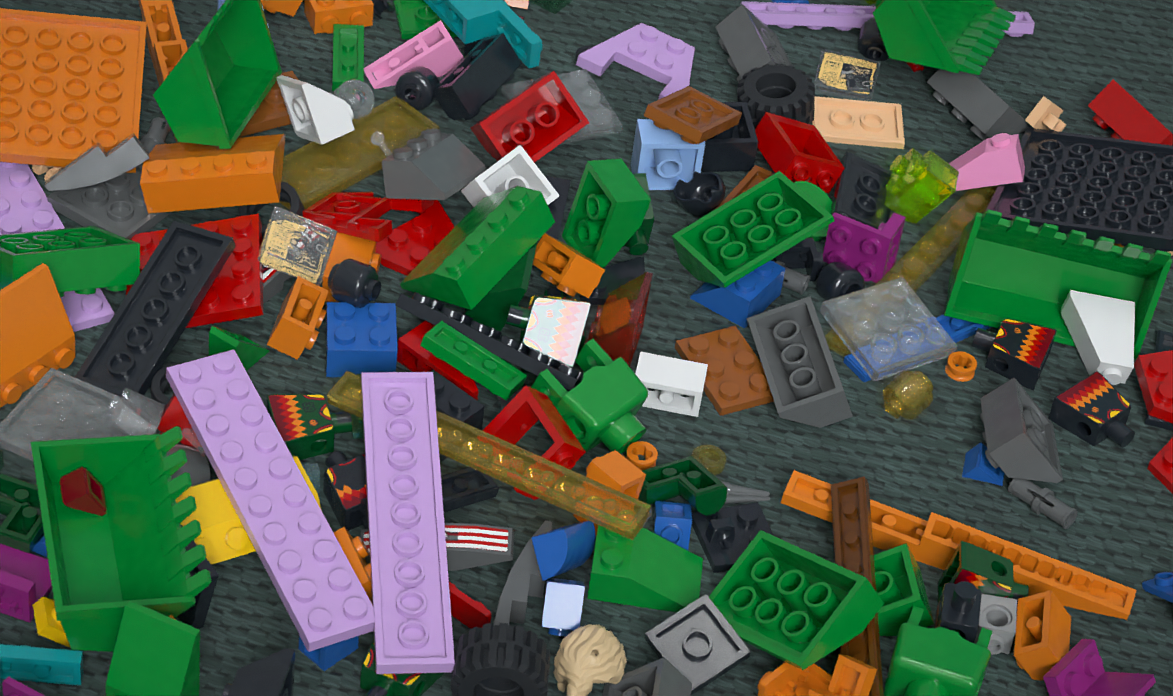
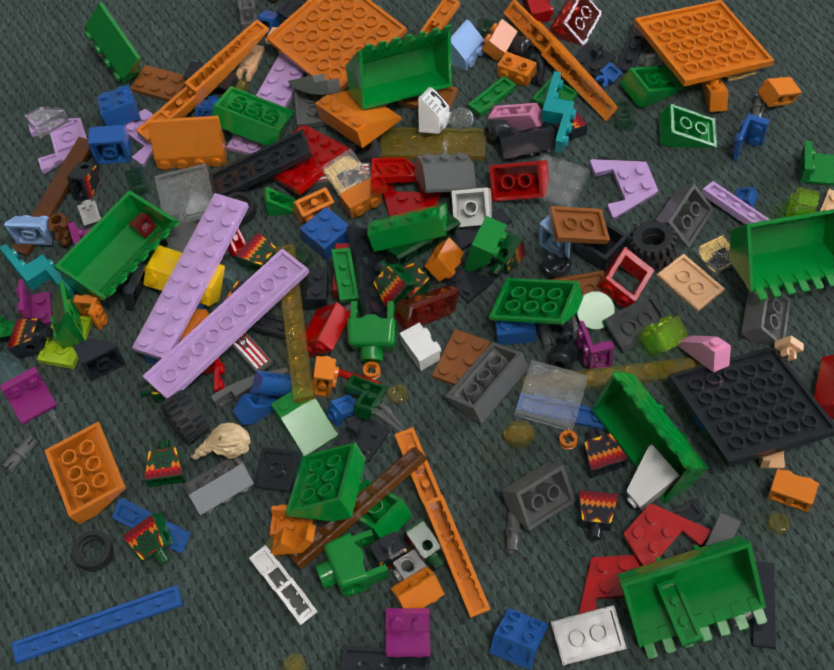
camera: 60 degrees right, 15 degrees up
(354, 283) = (339, 205): black head -> none

